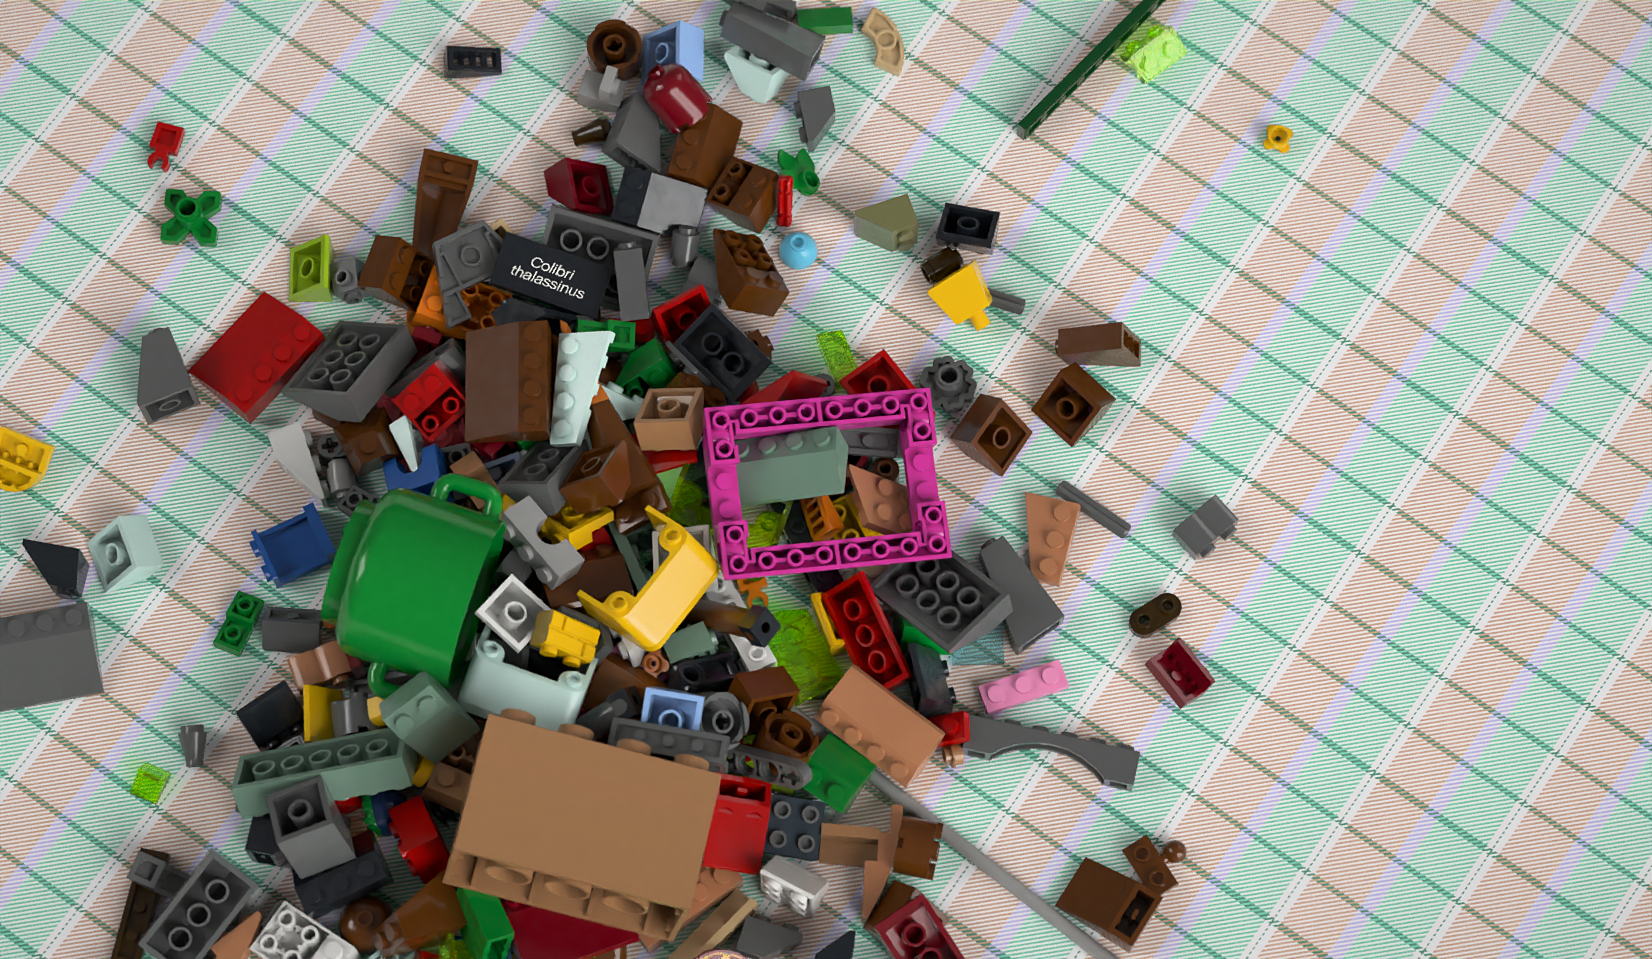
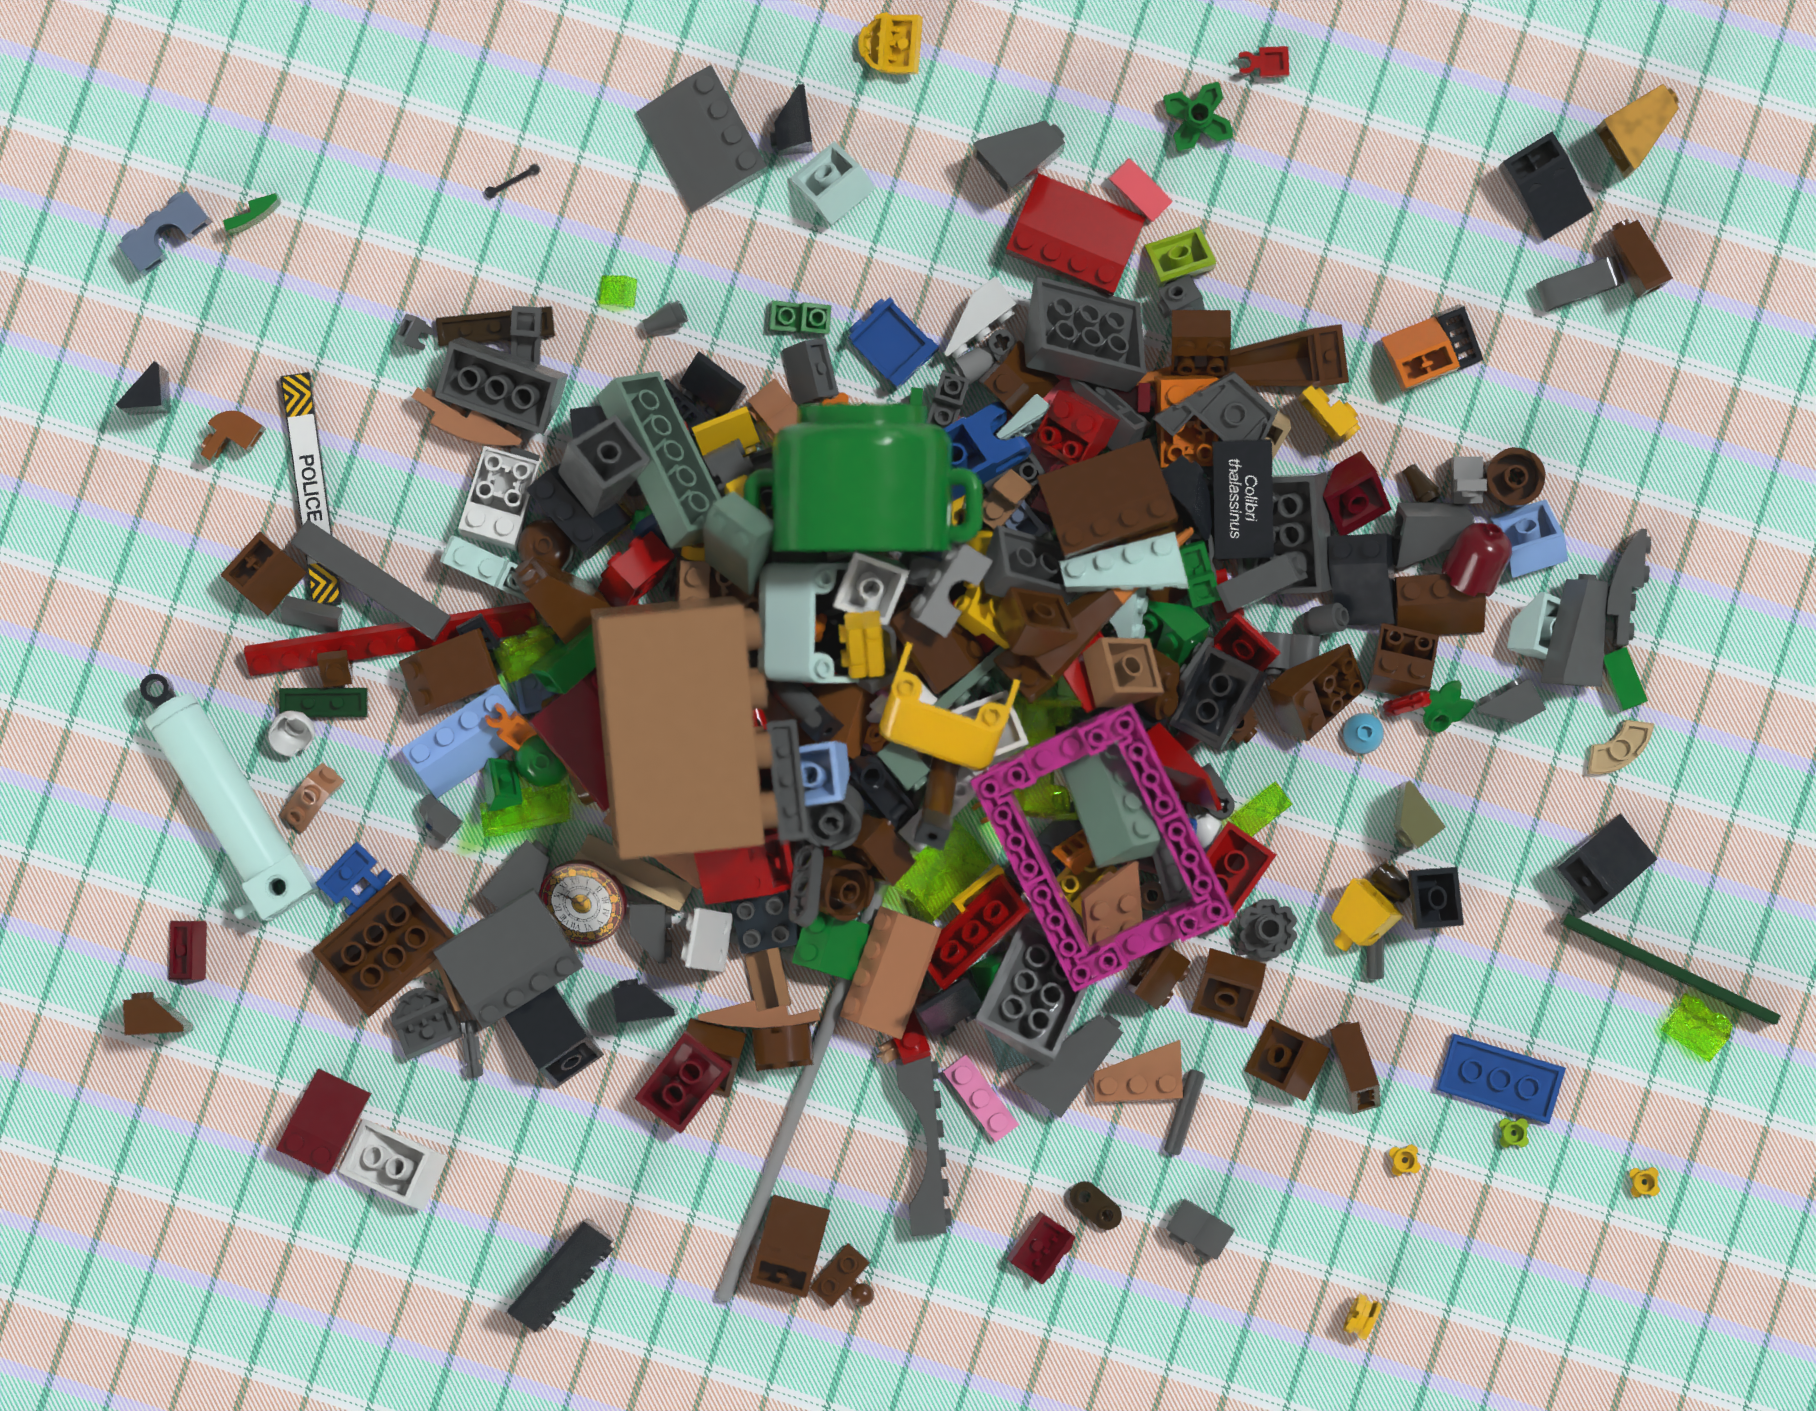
camera: 75 degrees right, 15 degrees up
(11, 871) = (491, 192): none -> black hinge
(236, 286) = (1140, 189): none -> coral slope
(475, 95) = (1420, 353): none -> orange slope
(505, 186) = (1336, 420): none -> yellow plate
(961, 491) = (1158, 976): none -> reddish brown slope
(985, 85) = (1604, 864): none -> black slope
(1147, 230) = (1500, 1078): none -> blue tile
(1200, 226) = (1520, 1138): none -> lime plate
(1201, 327) = (1412, 1162): none -> yellow plate
(1328, 410) = (1362, 1316): none -> yellow wheel

